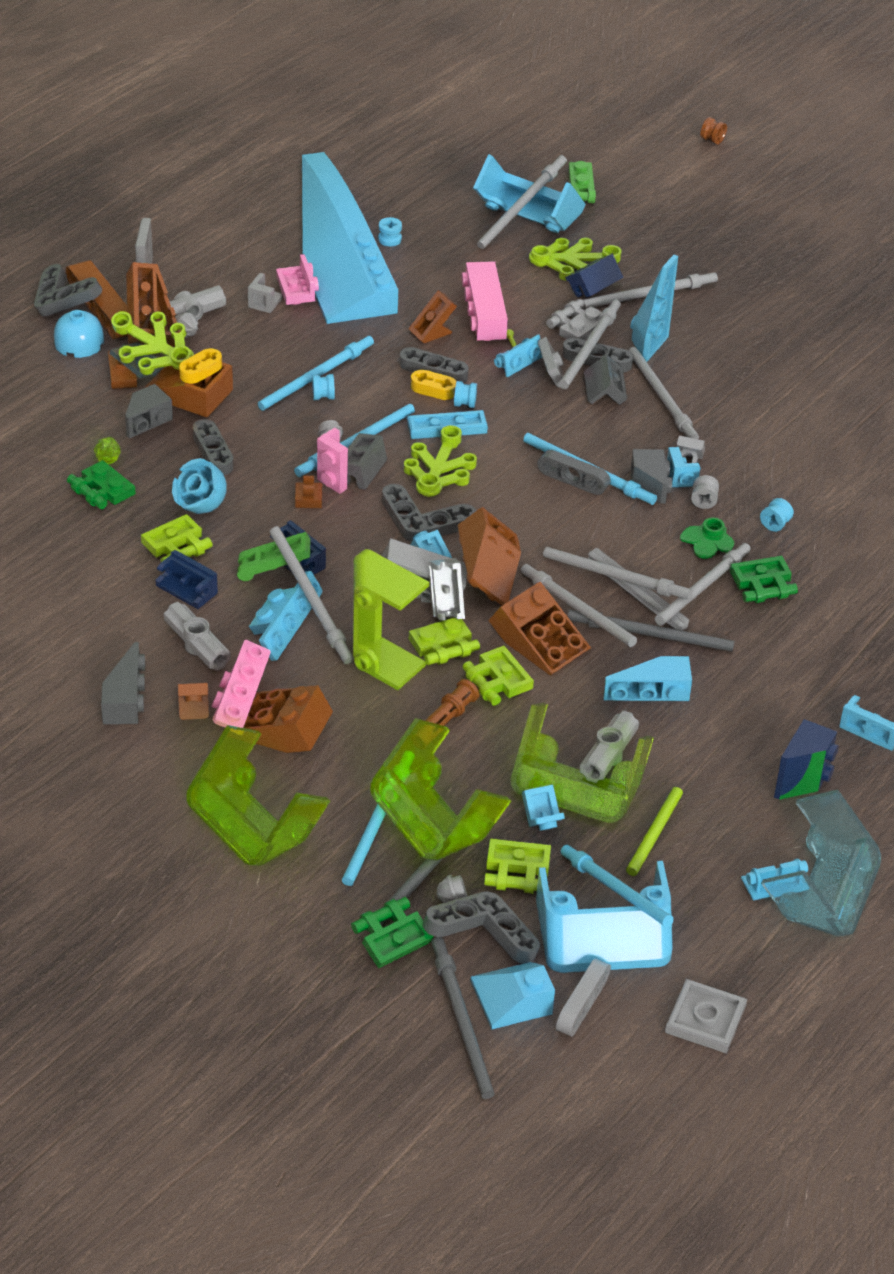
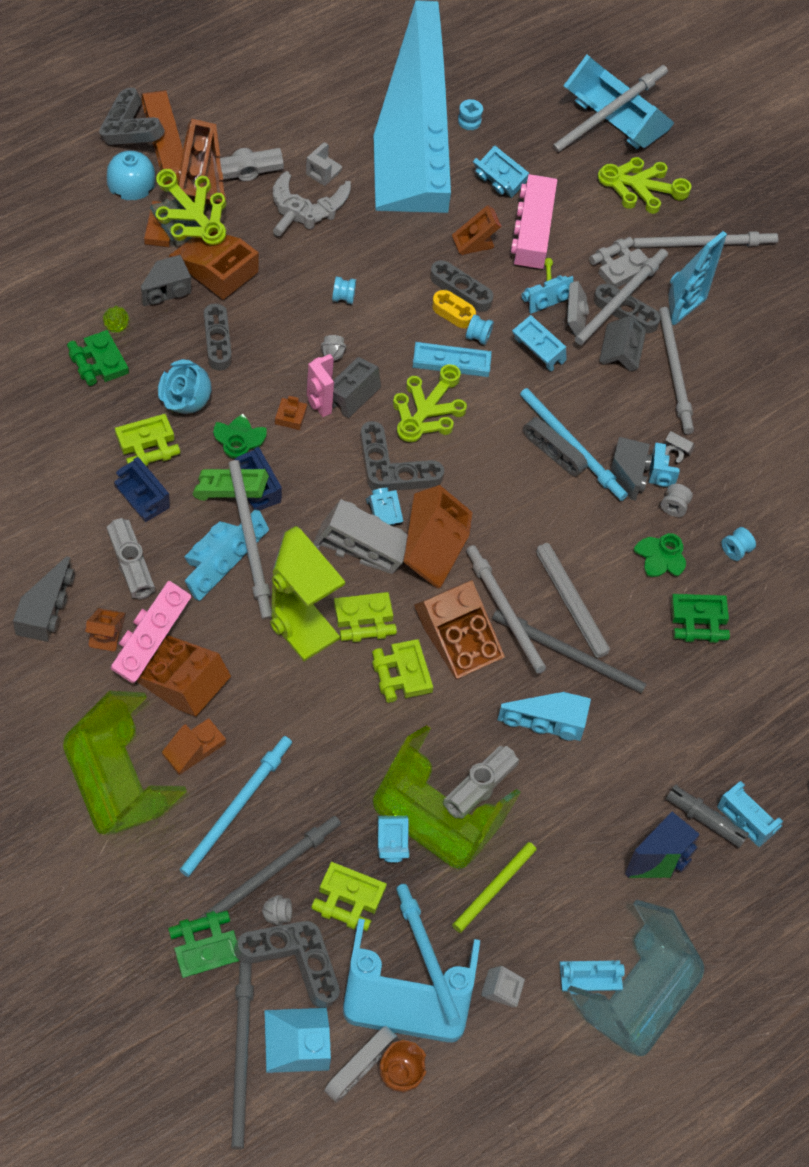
camera: 10 degrees right, 15 degrees up
(143, 245) = (220, 92): light grey tile -> none
(189, 322) = (235, 185): light grey plate -> none
(200, 366) = (227, 247): yellow beam -> none
(253, 334) = (302, 210): none -> light grey bar
(263, 521) = (239, 434): none -> green plate
(298, 282) = (359, 159): bright pink bracket -> none
(316, 774) = (193, 745): none -> dark orange slope
(350, 352) = (386, 251): medium azure bar -> none
(373, 429) = (365, 354): medium azure bar -> none
(407, 796) = (273, 810): clear neon green windscreen -> none
(437, 269) = (501, 171): none -> medium azure bracket
(446, 588) = (380, 564): hinge -> none
(454, 703) = (345, 697): dark orange pin -> none
(528, 391) = (541, 342): none -> medium azure hinge
(582, 180) = (681, 92): bright green plate -> none
(595, 276) = (654, 213): dark blue hinge -> none
(624, 987) = (402, 1066): none -> dark orange hair
(663, 586) = (593, 608): light grey bar -> none
(694, 908) = (503, 986): none -> light grey slope
(706, 1016) = (472, 1112): light grey tile -> none
(731, 557) = (674, 586): light grey bar -> none
(845, 735) = (707, 816): none -> dark grey pin

